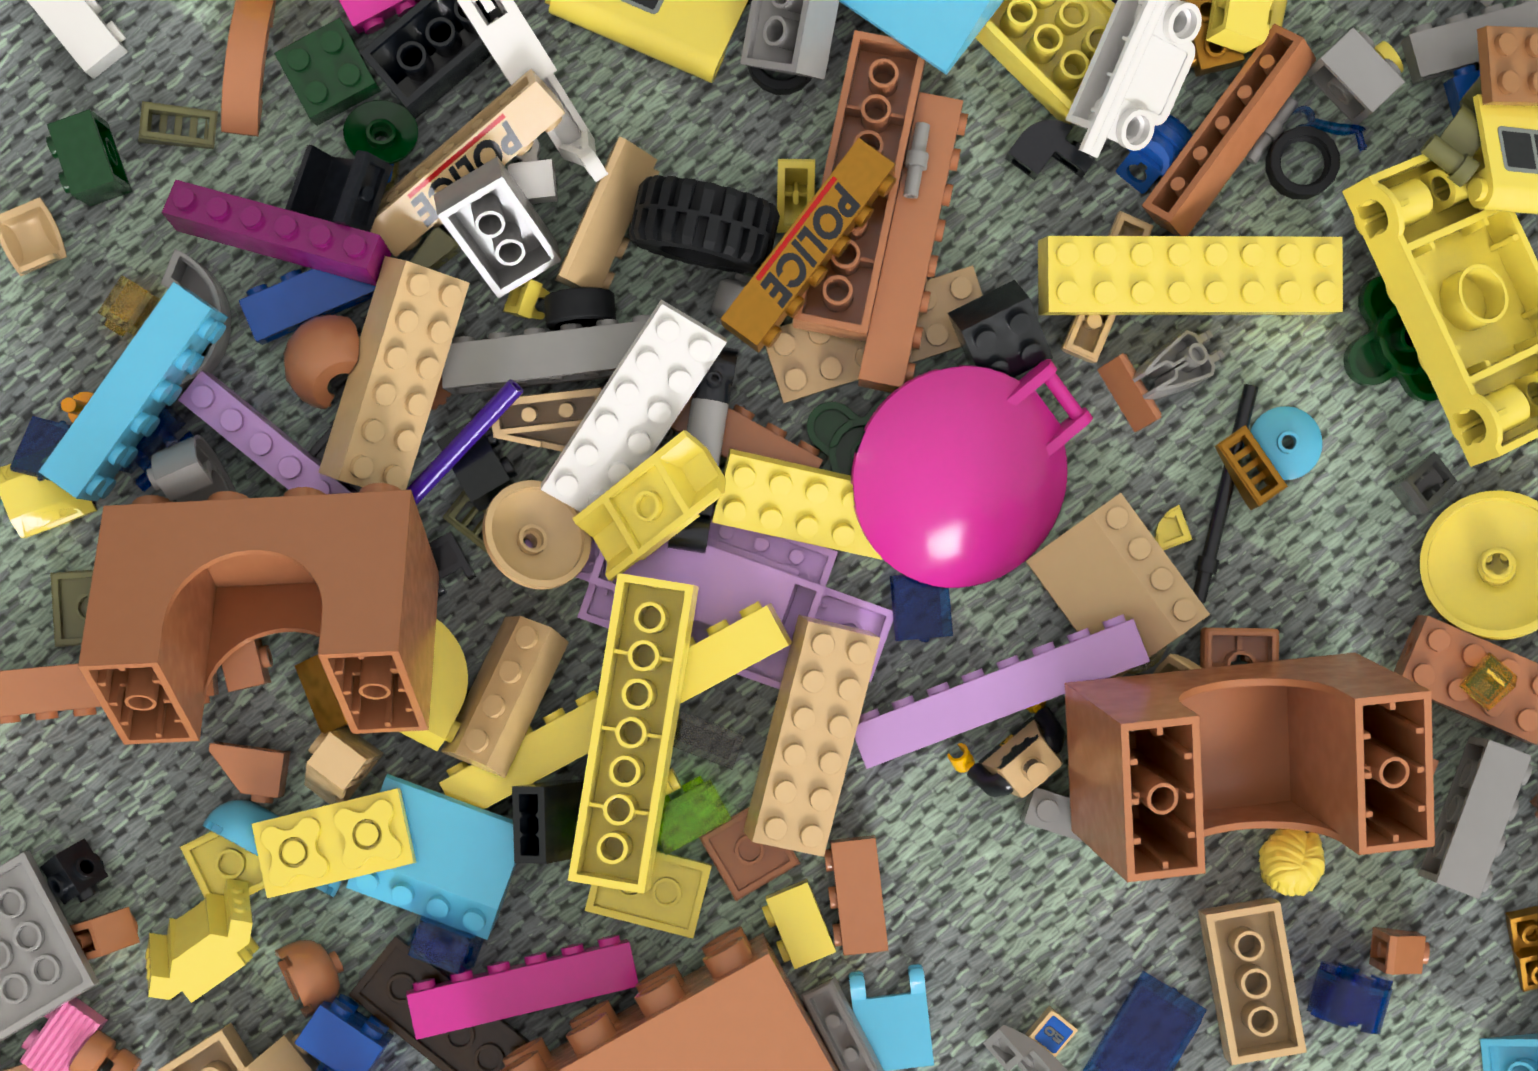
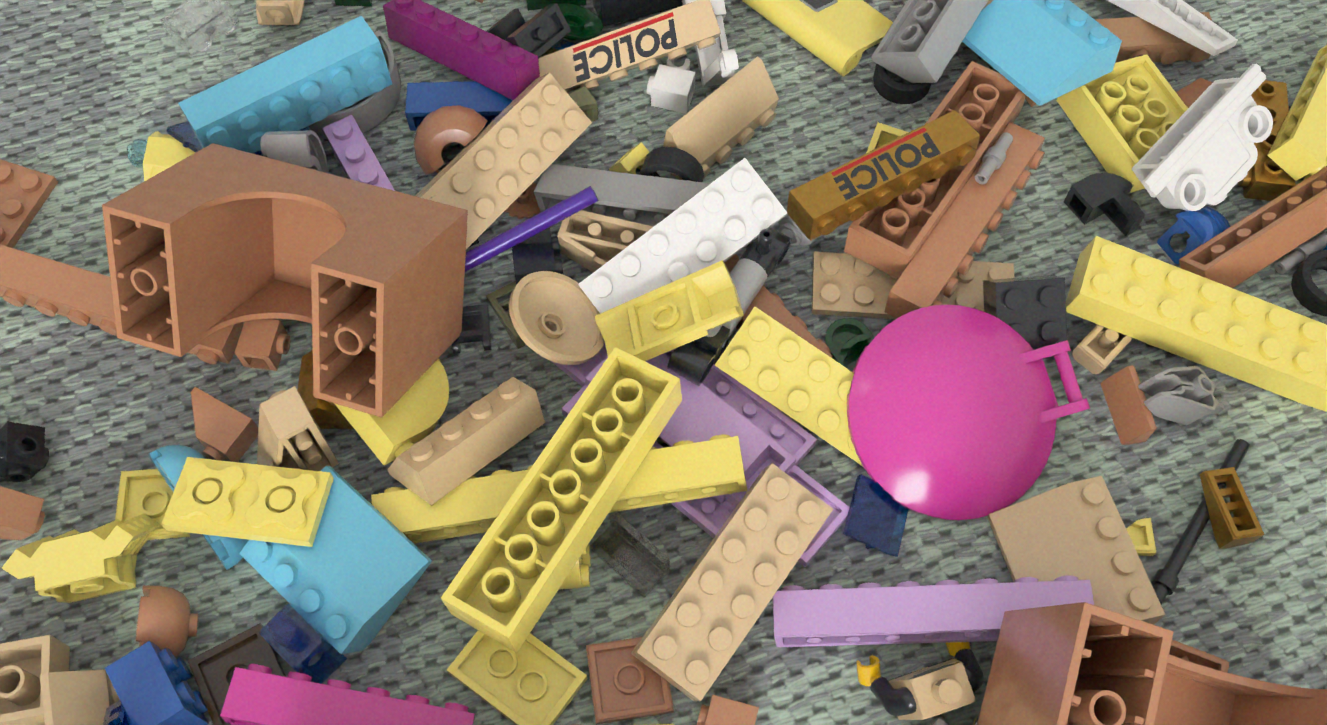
camera: 20 degrees right, 25 degrees down
(497, 227) = (631, 92): light grey brick -> none
(545, 820) = (441, 552): black brick -> none
(691, 814) = (584, 618): clear neon green brick -> none
(703, 224) = (798, 132): black tyre -> none
(1299, 425) = (1277, 519): medium azure dish -> none

